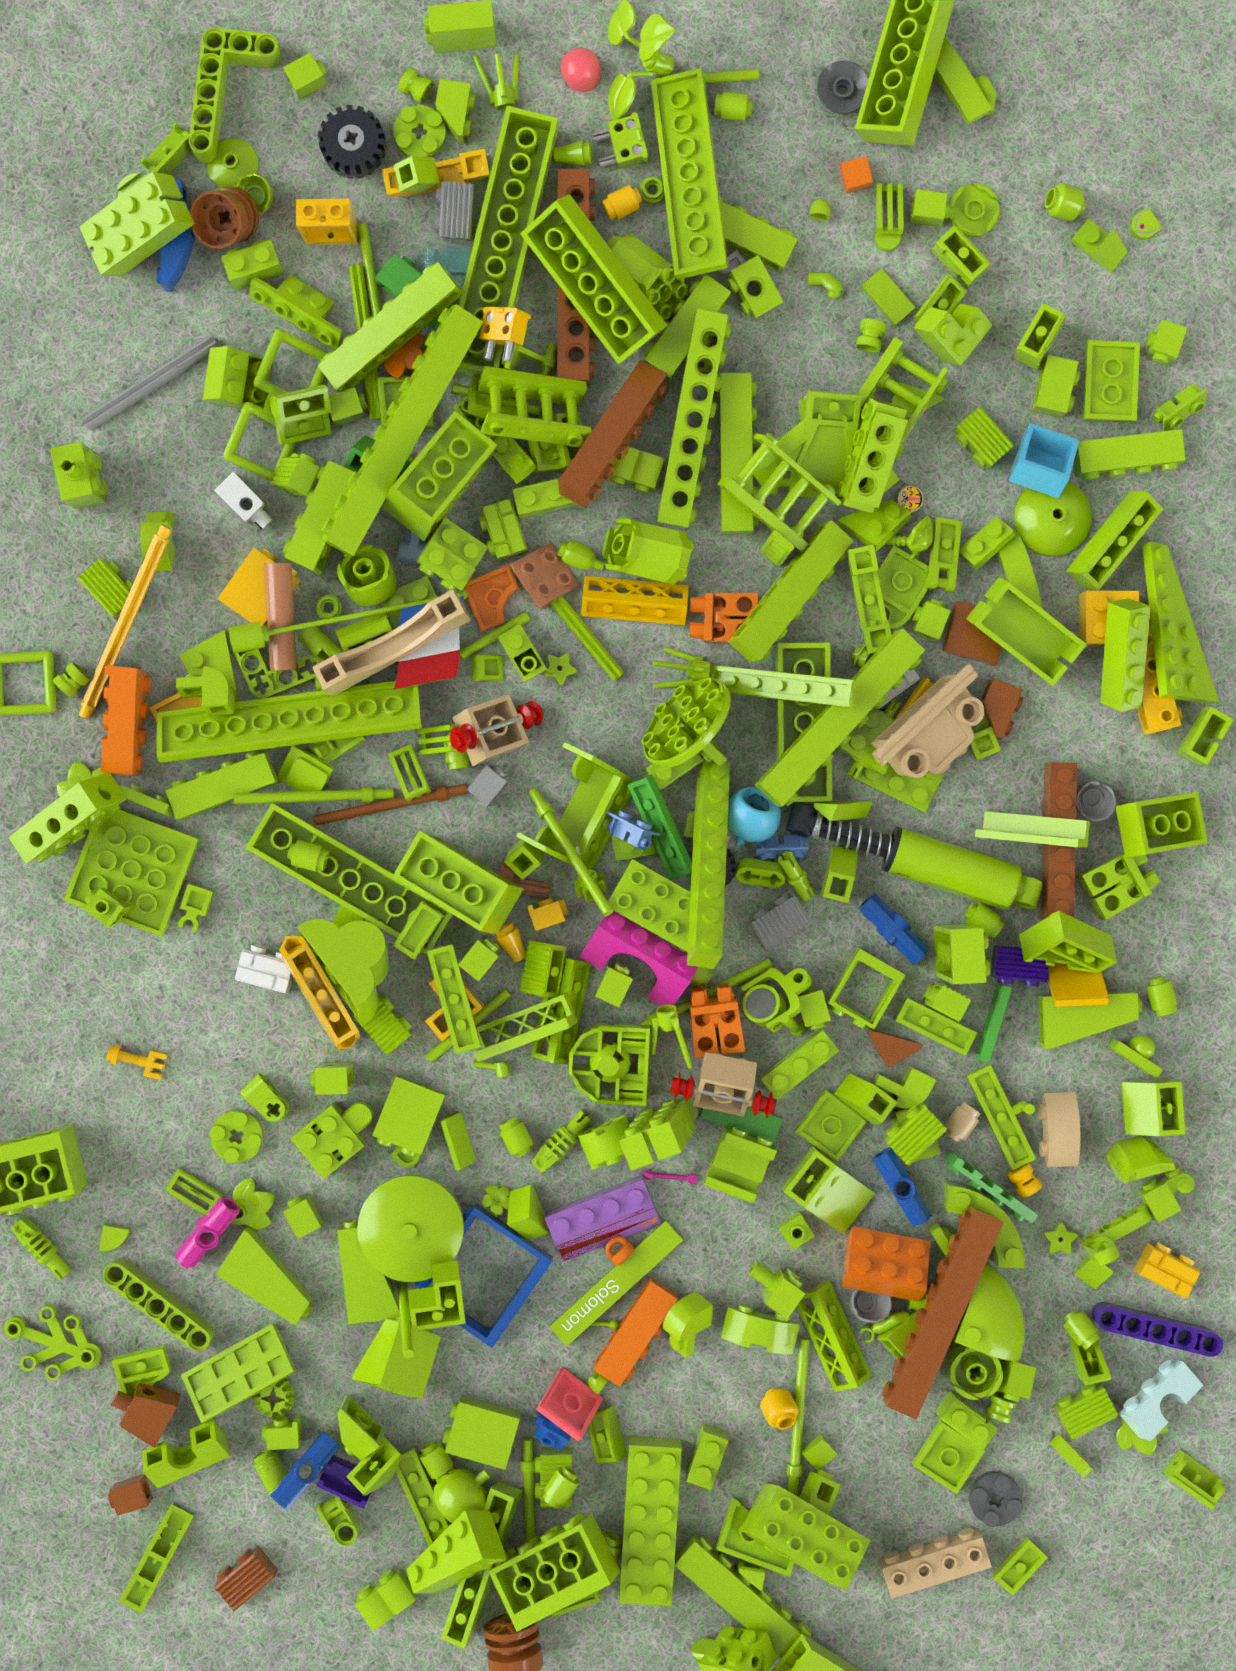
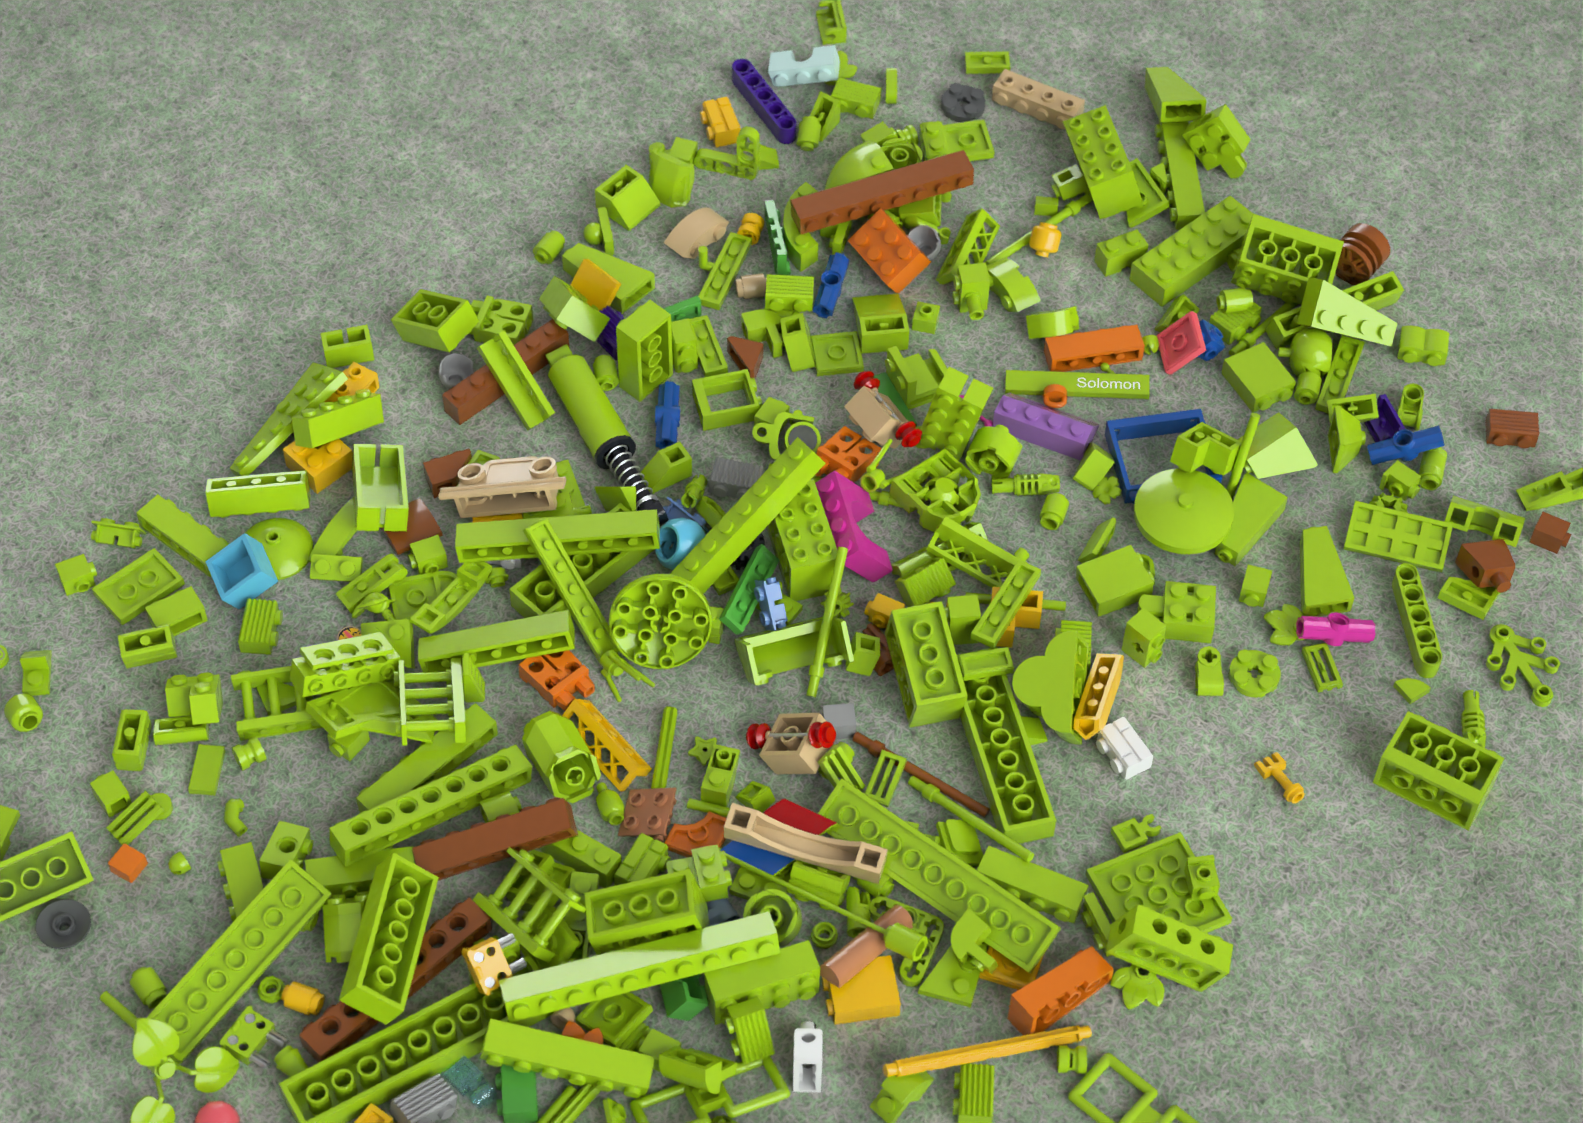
camera: 135 degrees left, 35 degrees down
(308, 856) = (1014, 768): lime brick -> none
(614, 984) = (888, 528): lime brick -> none
(798, 1063) = (817, 395): lime brick -> none
(970, 217) = (81, 767): lime tile -> none
(1065, 1244) = (765, 192): lime plate -> none

